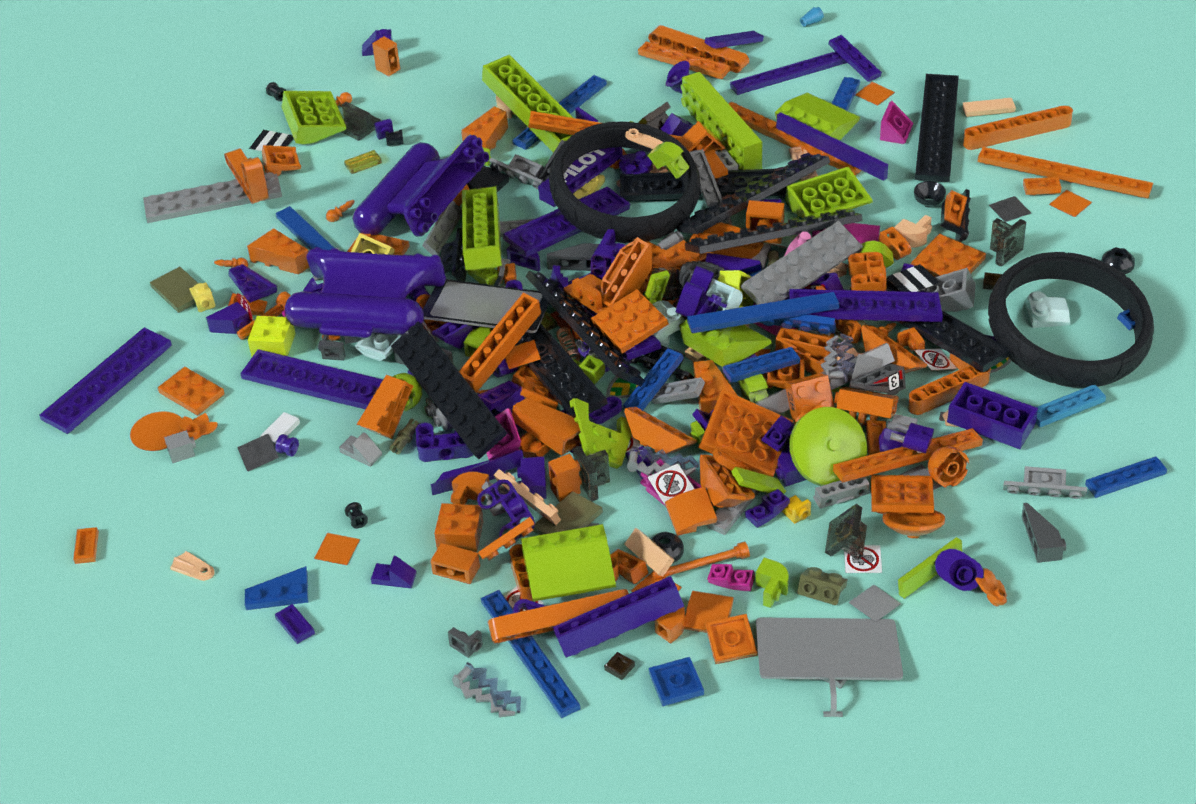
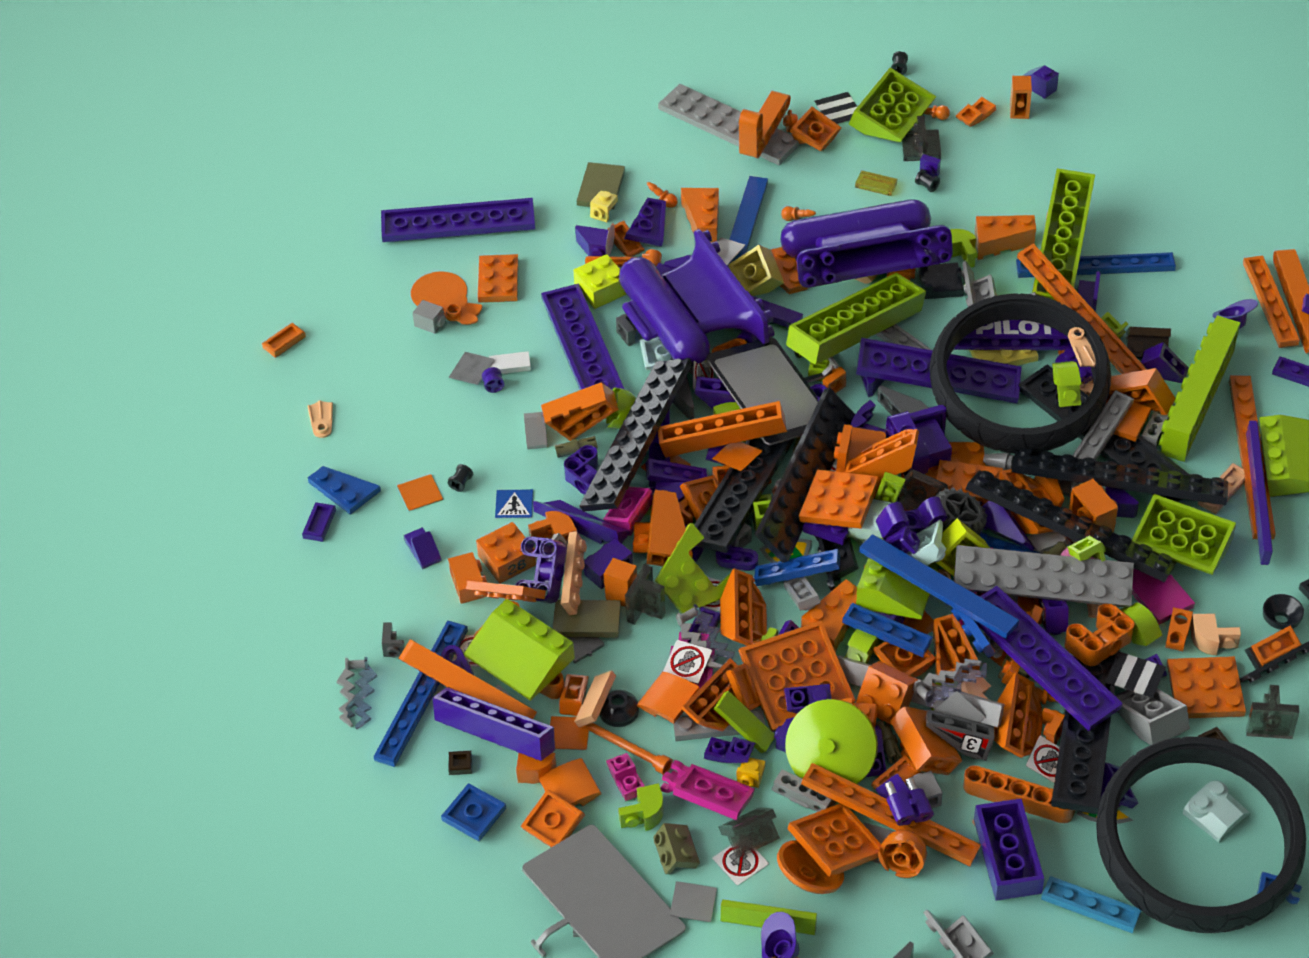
camera: 50 degrees right, 5 degrees up
(365, 84) = (977, 112): none -> orange slope
(412, 502) = (514, 503): none -> blue sticker
(442, 229) = (825, 298): light grey plate -> none
(791, 537) = (707, 789): none -> dark pink tile
(809, 230) = (1087, 548): none -> lime bracket

